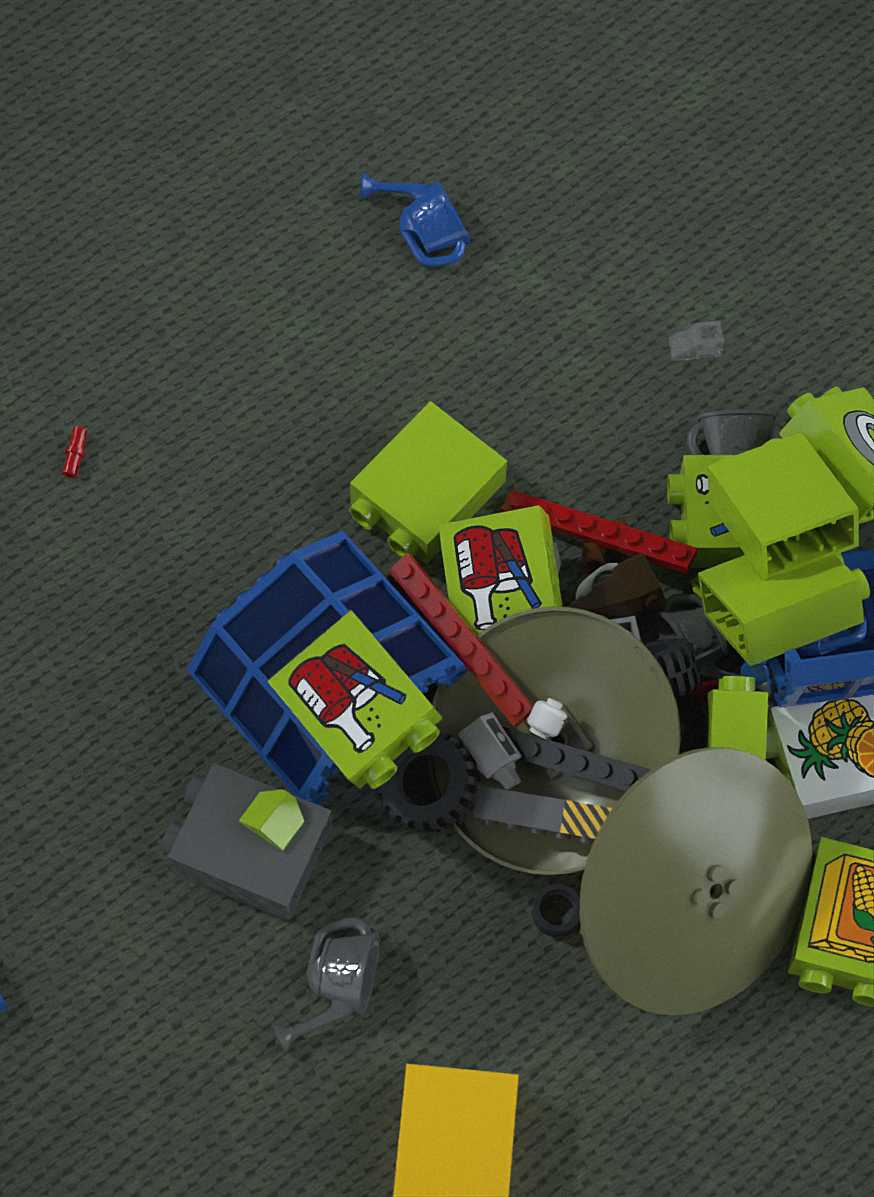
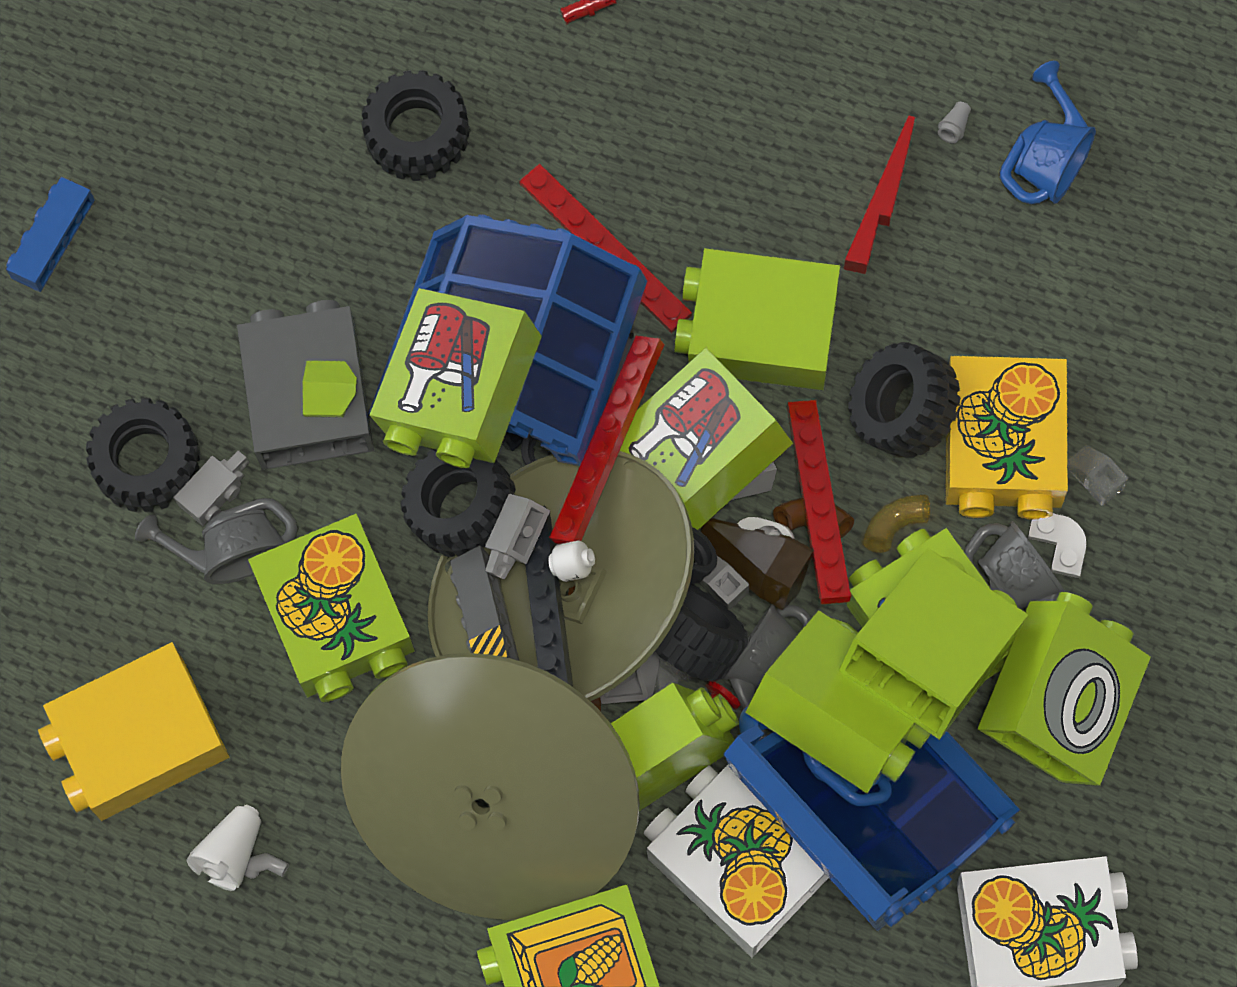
camera: 65 degrees right, 5 degrees up
(89, 661) = (422, 156): none -> black tyre
(225, 1037) = (121, 427): none -> black tyre
(254, 564) = (582, 223): none -> red plate
(281, 967) = (212, 487): none -> light grey hinge
(361, 269) = (954, 123): none -> light grey cone
(388, 350) = (881, 204): none -> red slope
(452, 928) = (332, 608): none -> brick
(534, 429) = (929, 410): none -> black tyre
(597, 1127) = (227, 848): none -> white cone
(622, 1109) = (265, 862): none -> light grey arm
(631, 379) = (1008, 436): none -> brick
(640, 494) = (894, 517): none -> clear yellow cylinder
(728, 392) = (1069, 542): none -> white plate

